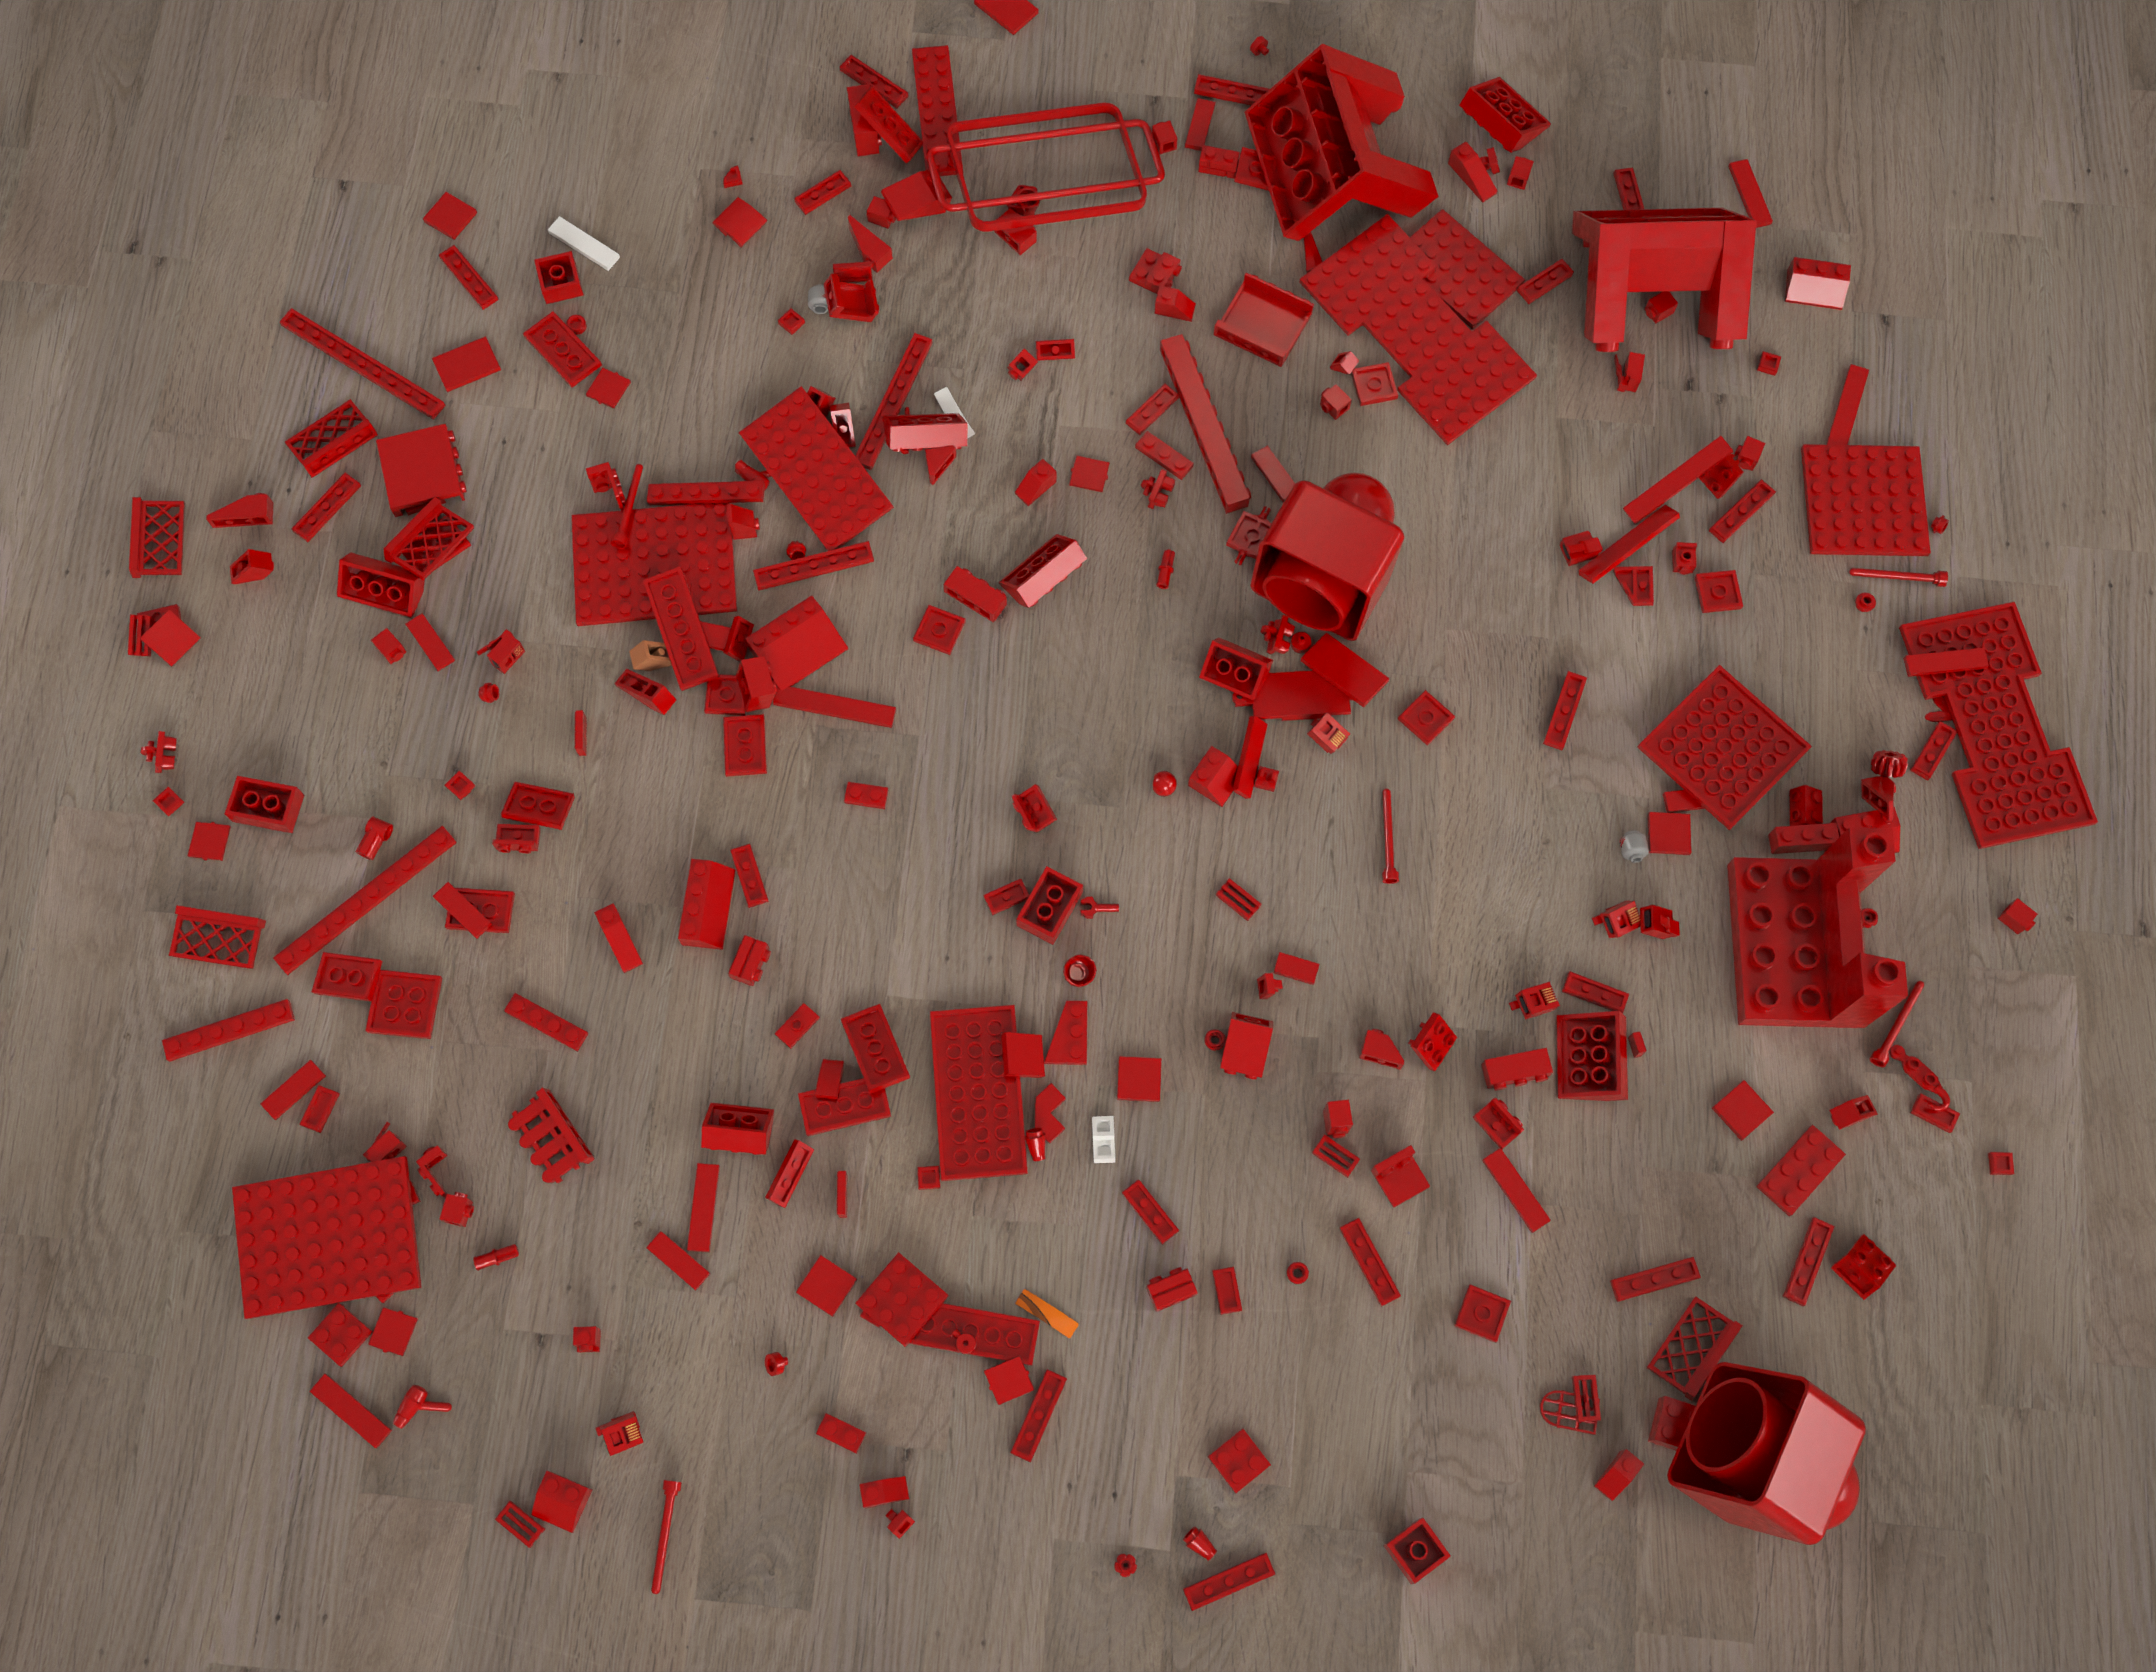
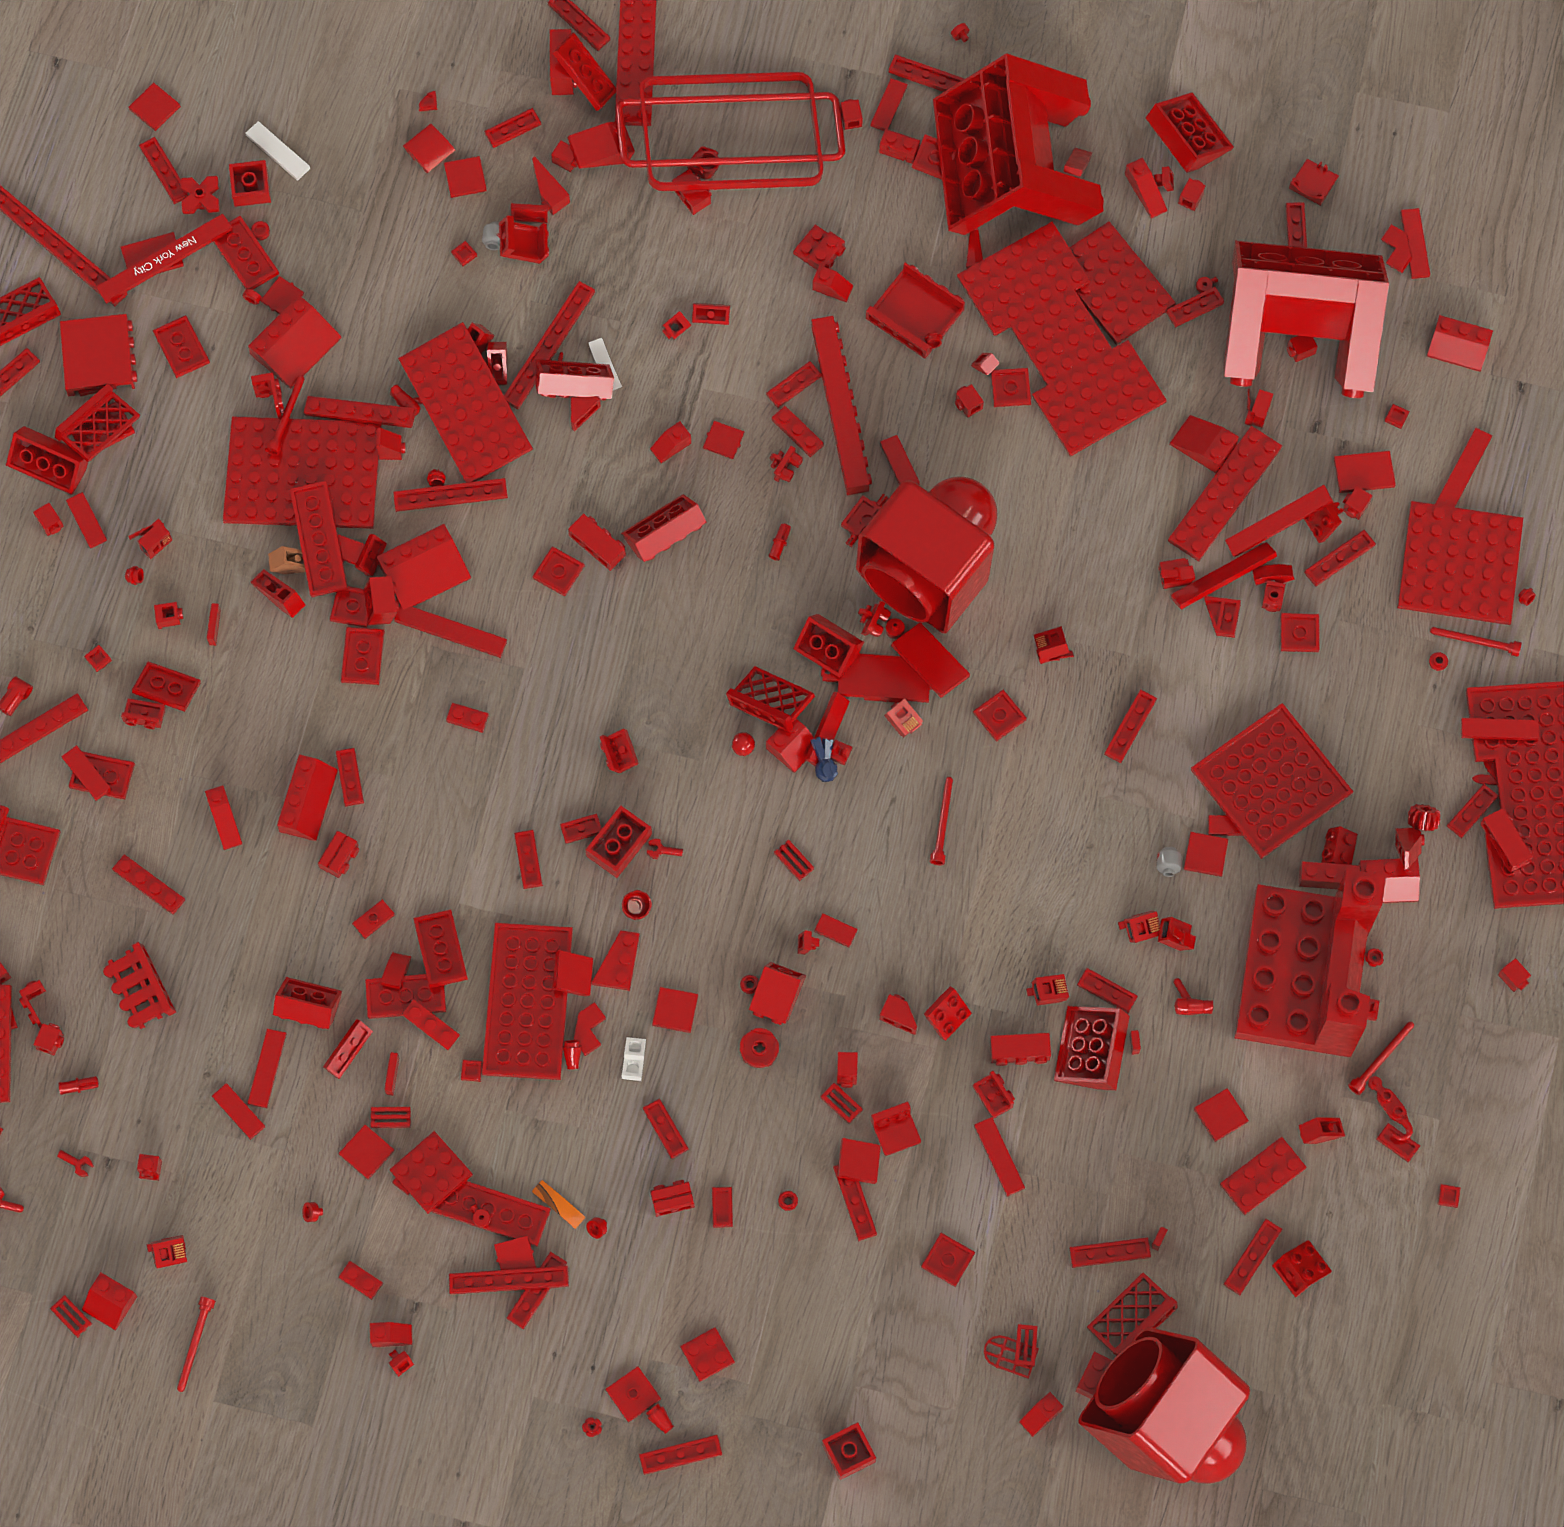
camera: 10 degrees right, 0 degrees up
(478, 363) = (164, 258): none -> red tile
(504, 1345) = (78, 1163): none -> red bar
(508, 295) = (200, 195): none -> red plant
(508, 451) = (181, 346): none -> red tile
(525, 725) = (162, 612): none -> red brick
(576, 390) = (251, 296): none -> red tile
(626, 430) = (294, 341): none -> red slope
(781, 245) = (465, 176): none -> red tile
(866, 1239) = (407, 1124): none -> red tile
(877, 1133) = (431, 1024): none -> red plate
(954, 937) = (528, 859): none -> red tile
(1006, 1409) = (509, 1280): none -> red tile
(1094, 1334) = (597, 1227): none -> red tile
(1164, 1519) = (633, 1394): none -> red plate
(1178, 743) = (762, 708): none -> red fence
(1245, 1099) = (752, 1039): none -> red plate
(1255, 797) = (826, 768): none -> dark blue piece
(1288, 344) = (933, 339): none -> red plate
(1367, 1217) = (858, 1161): none -> red tile
(1403, 152) = (1077, 162): none -> red tile
(1468, 637) = (1052, 645): none -> red piece
(1550, 258) = (1205, 281): none -> red piece
(1582, 413) = (1205, 442): none -> red slope
(1612, 462) = (1225, 493): none -> red plate
(1638, 146) = (1313, 181): none -> red piece
(1684, 533) = (1279, 572): none -> red slope
(1686, 997) = (1188, 1005): none -> red piece
(1706, 1256) = (1159, 1238): none -> red tile
(1735, 192) = (1401, 255): none -> red tile
(1750, 419) = (1364, 470): none -> red tile
(1980, 775) = (1507, 839): none -> red brick

